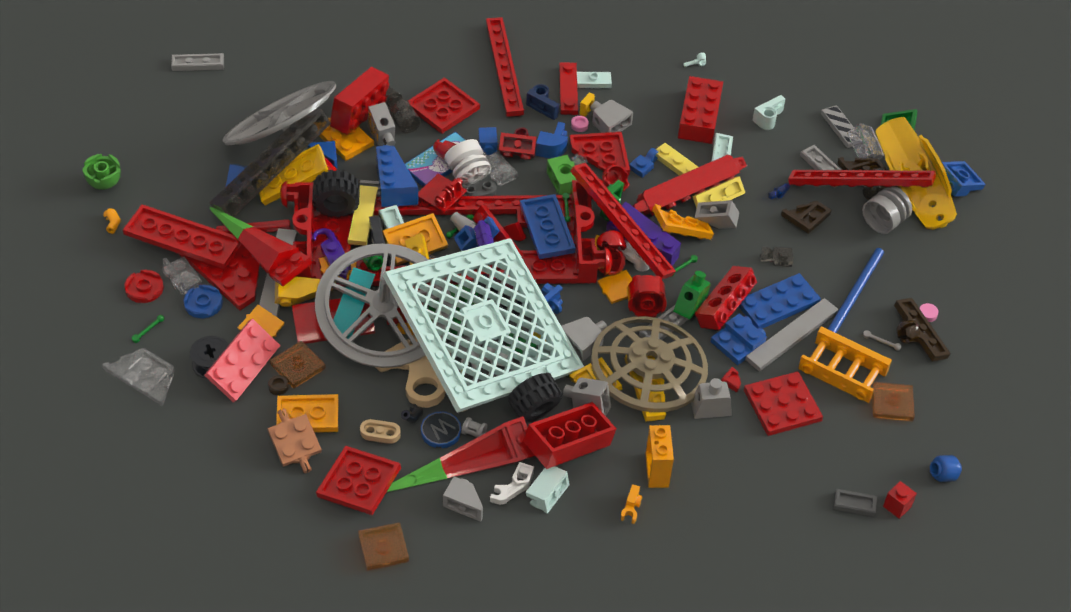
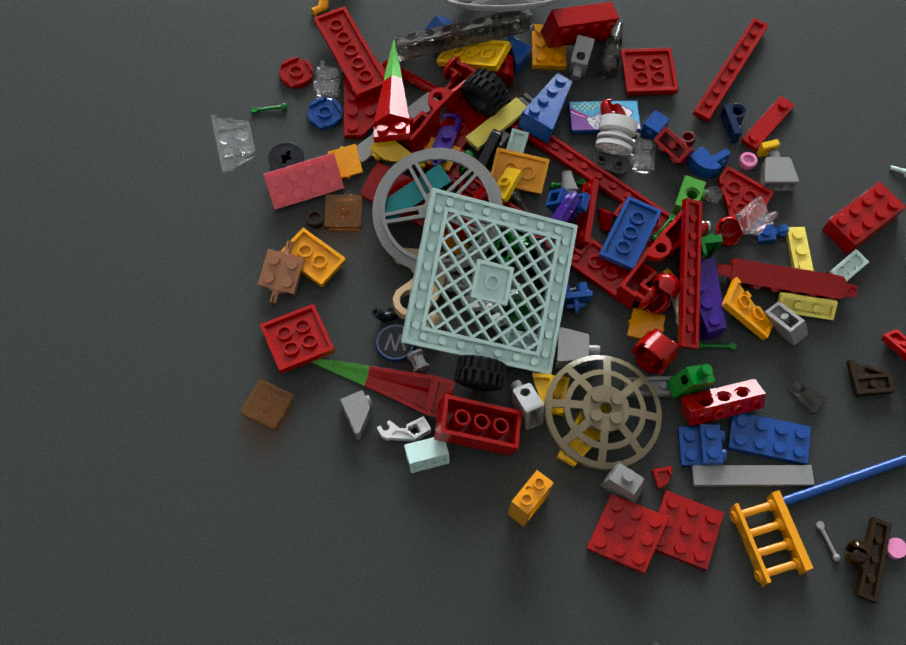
camera: 40 degrees right, 15 degrees up
(380, 431) = (349, 312): tan plate -> none
(442, 192) = (574, 146): red hinge -> none
(594, 80) = (796, 129): light aqua plate -> none
(626, 156) = (755, 217): none -> clear bracket
(633, 501) = (480, 517): light orange plate -> none
(748, 433) = (628, 534): none -> red plate
(779, 191) = (866, 339): clear blue bar -> none
(893, 401) = (783, 603): clear orange plate -> none

